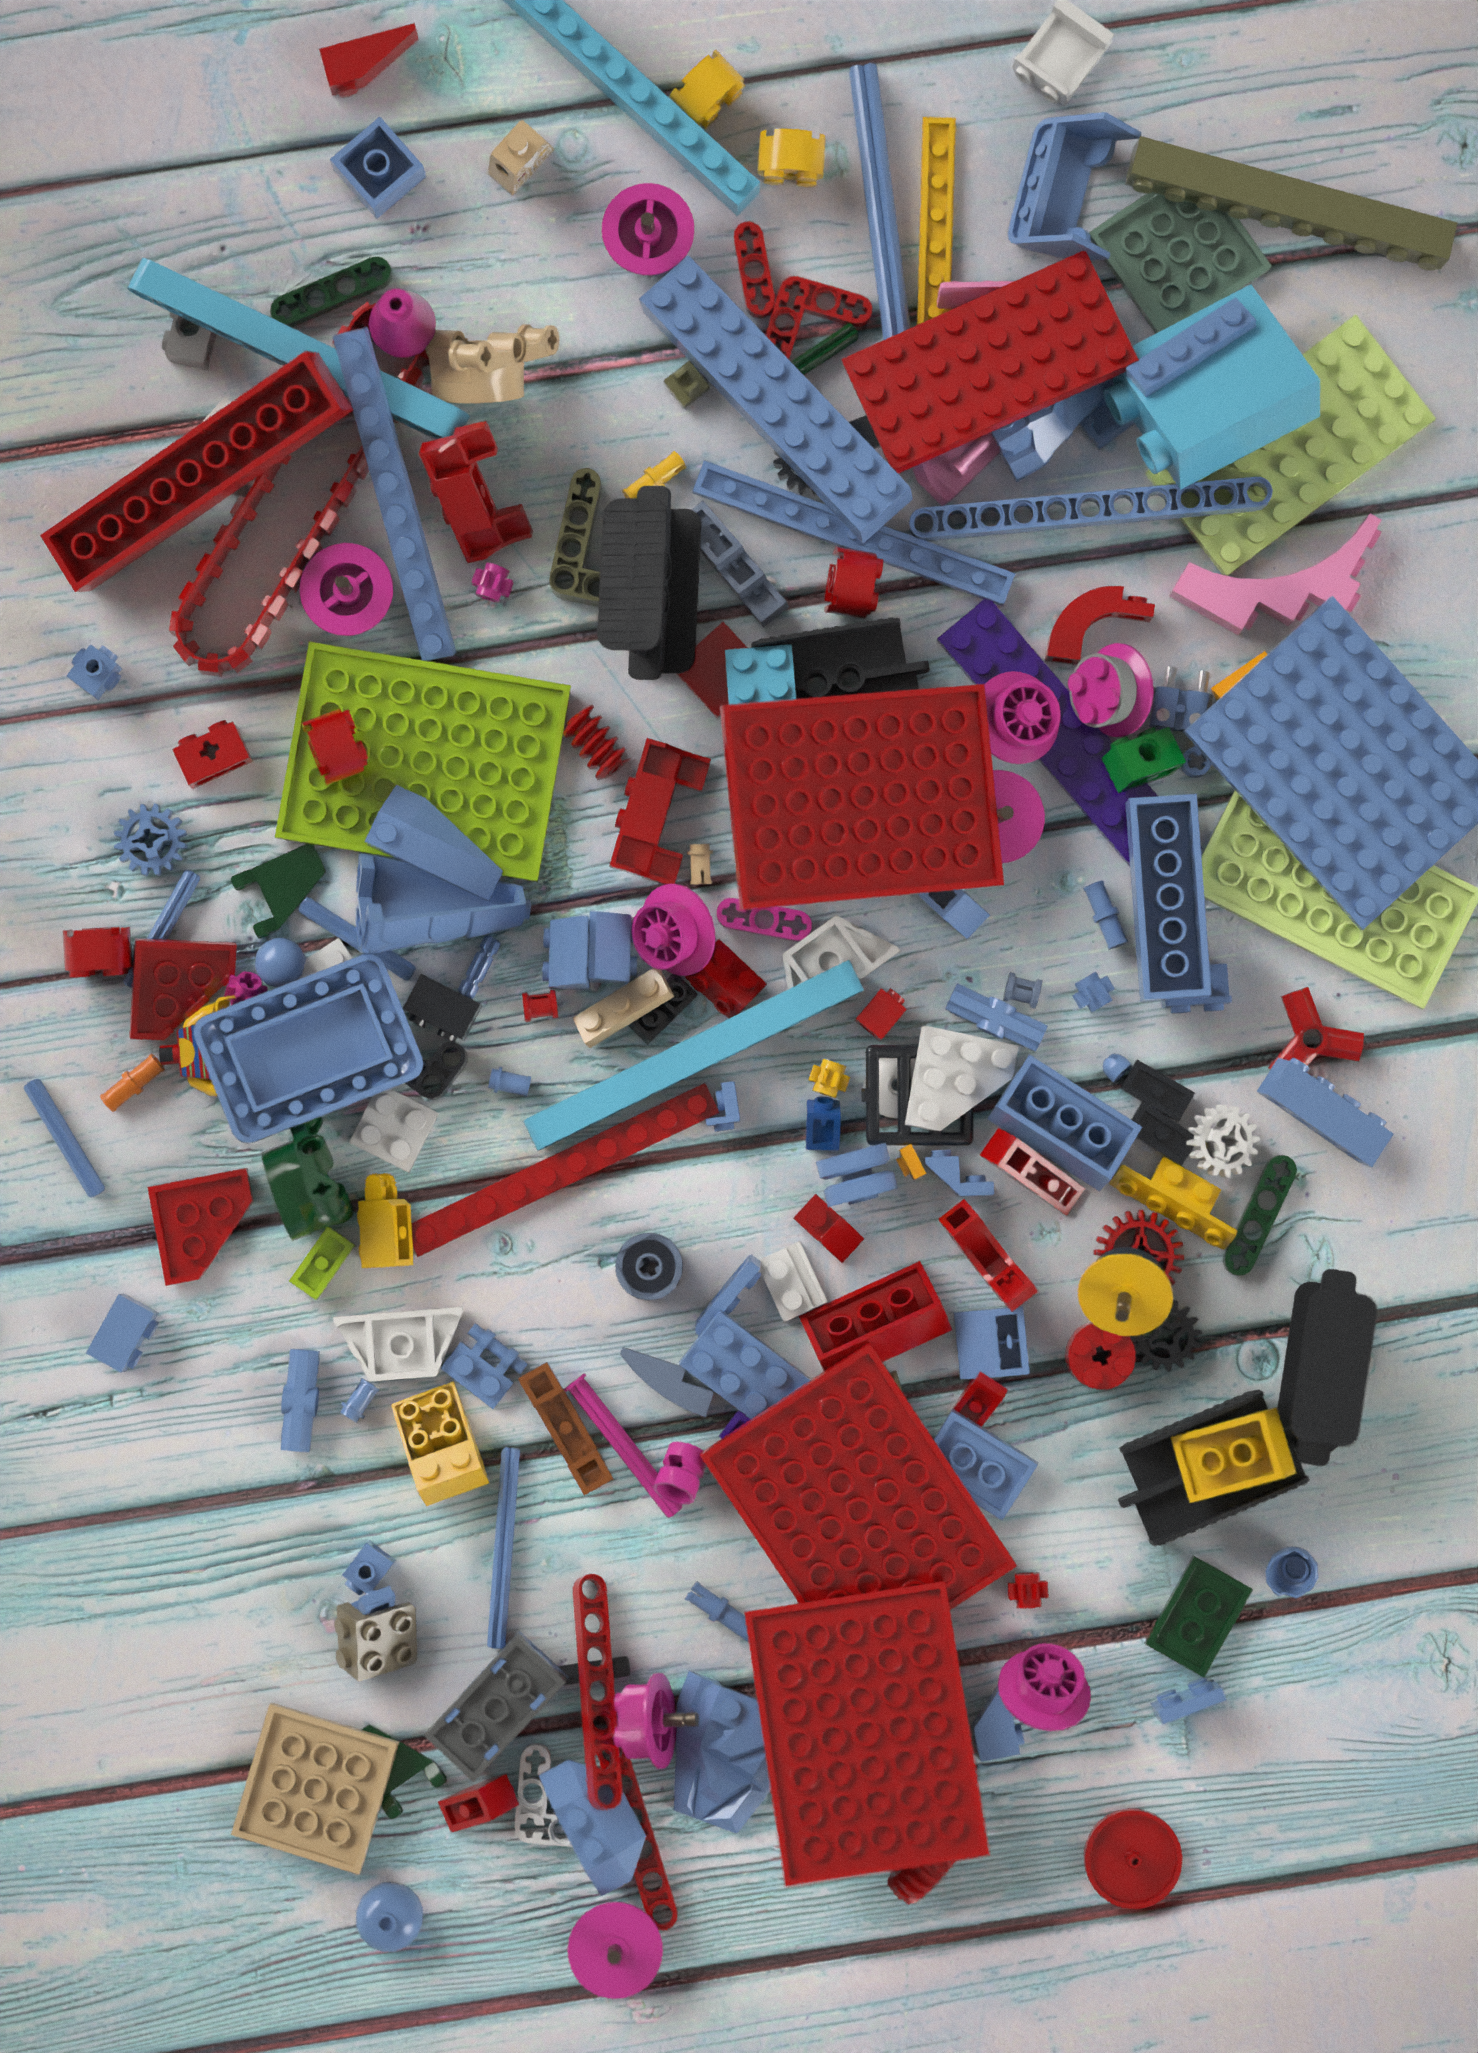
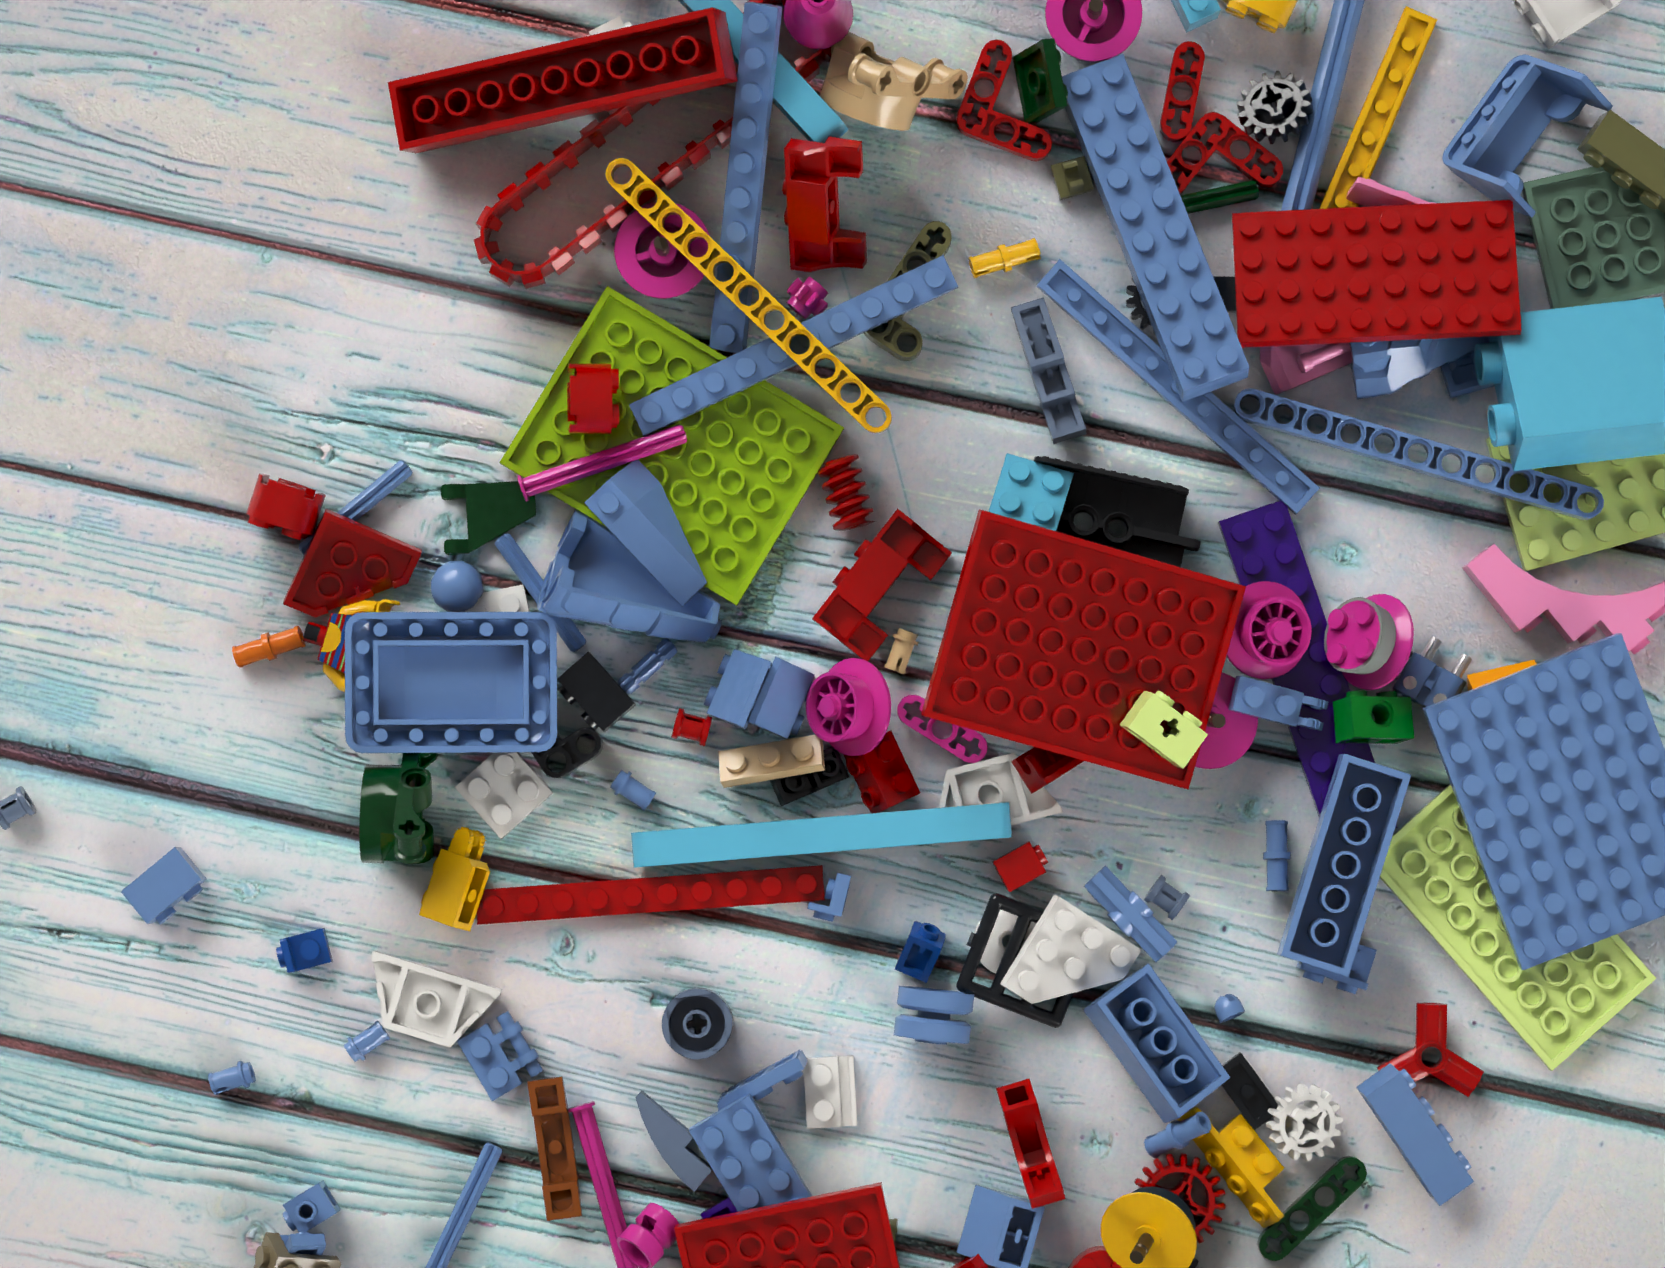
camera: 30 degrees right, 0 degrees up
(64, 1138) = (182, 674): medium blue axle -> none
(95, 682) = (378, 228): medium blue brick -> none
(147, 825) = (380, 402): medium blue gear -> none
(196, 1220) = (277, 804): red plate -> none
(200, 768) = (452, 368): red brick -> none
(244, 987) = (413, 598): dark pink gear -> none
(251, 1480) = (232, 1078): none -> medium blue pin
(271, 1341) = (304, 951): none -> blue bracket
(300, 1400) = (309, 1018): medium blue piece -> none
(322, 1263) = (382, 894): lime plate -> none
(366, 799) = (602, 461): none -> dark pink axle
(422, 597) = (740, 280): none -> yellow beam
(439, 1444) = (427, 1114): yellow slope -> none
(492, 633) = (768, 359): none -> medium blue plate
(594, 359) = (991, 118): none -> red beam
(624, 308) = (1040, 81): none -> dark green plate
(650, 583) = (959, 359): black piece -> none
(708, 673) = (982, 461): red slope -> none
(828, 1228) = (886, 1054): red slope -> none
(829, 1078) = (944, 909): yellow gear -> none
(831, 263) = (1258, 114): none -> gear
(852, 583) = (1157, 435): red brick -> none
(867, 915) = (1042, 767): none -> red hinge
(887, 1313) = (911, 1160): red slope -> none
(910, 1163) = (990, 1022): light orange plate -> none
(942, 840) = (1145, 720): none -> yellowish green brick
(947, 1170) = (1024, 1044): medium blue slope -> none
(957, 909) = (1134, 795): medium blue slope -> none
(1032, 1171) = (1106, 1077): slope -> none
(1050, 779) = (1273, 703): none -> medium blue hinge
(1093, 992) = (1235, 926): medium blue gear -> none
(1097, 604) = (1352, 562): red arch -> none
(1115, 1196) = (1177, 1134): none -> medium blue pin
(1157, 1090) = (1259, 1047): black plate -> none
(1190, 347) = (1577, 336): medium blue plate -> none
(1194, 772) = (1418, 750): medium blue bush -> none

